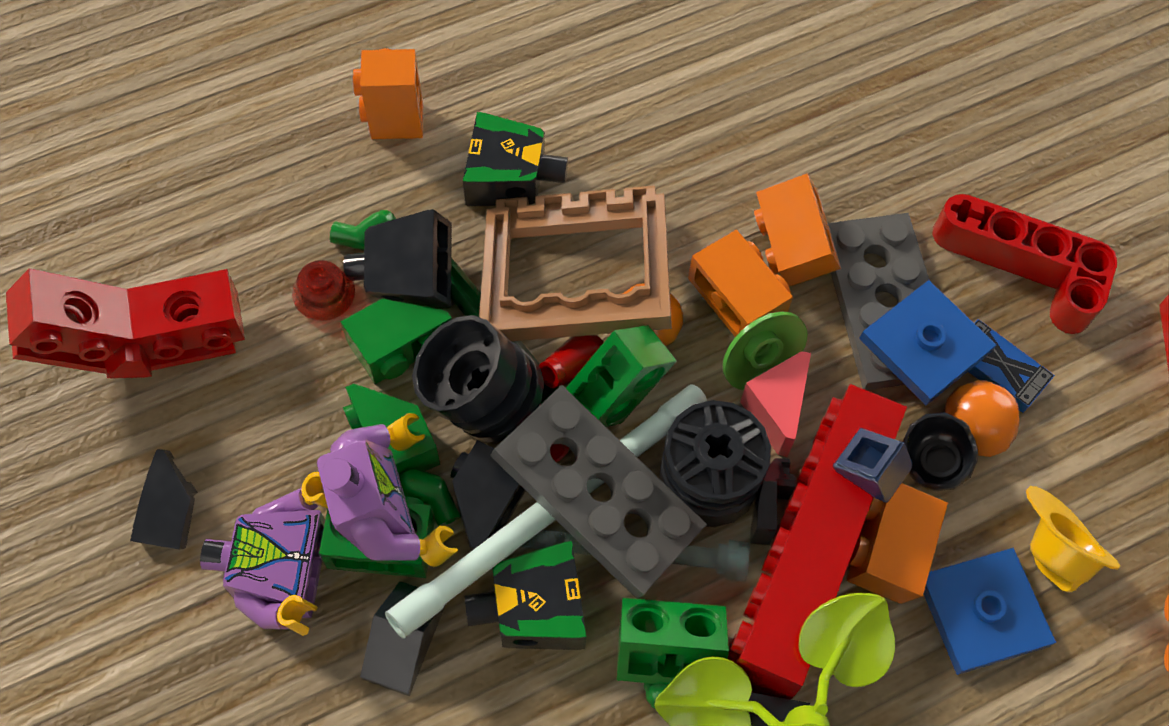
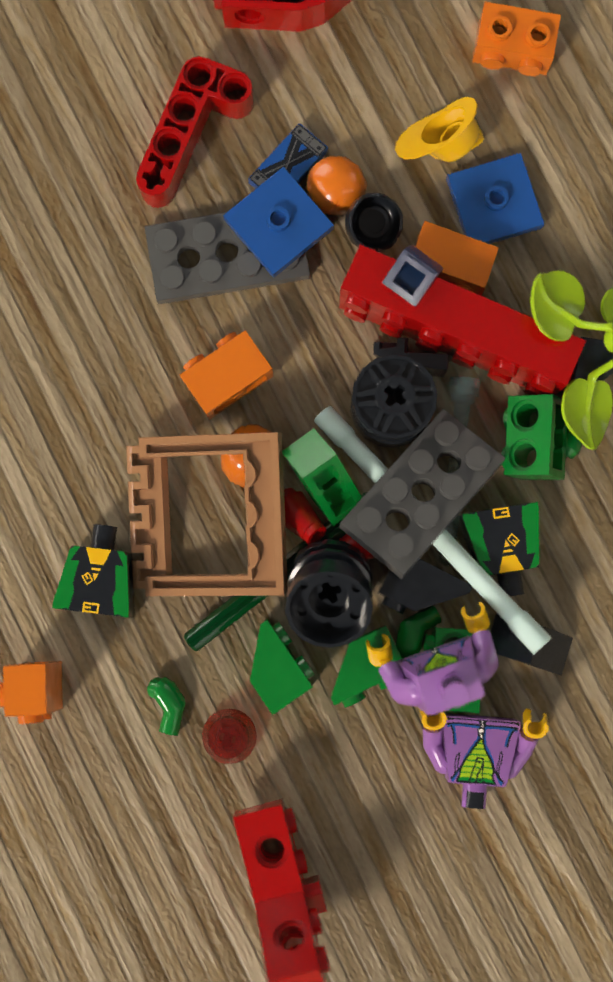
camera: 85 degrees left, 20 degrees up
(164, 505) = (430, 846): black slope -> none
(406, 260) = (210, 663): black torso -> none
(763, 346) = (289, 357): bright green dish -> none
(777, 400) = (329, 346): coral slope -> none
(796, 230) = (171, 323): orange brick -> none

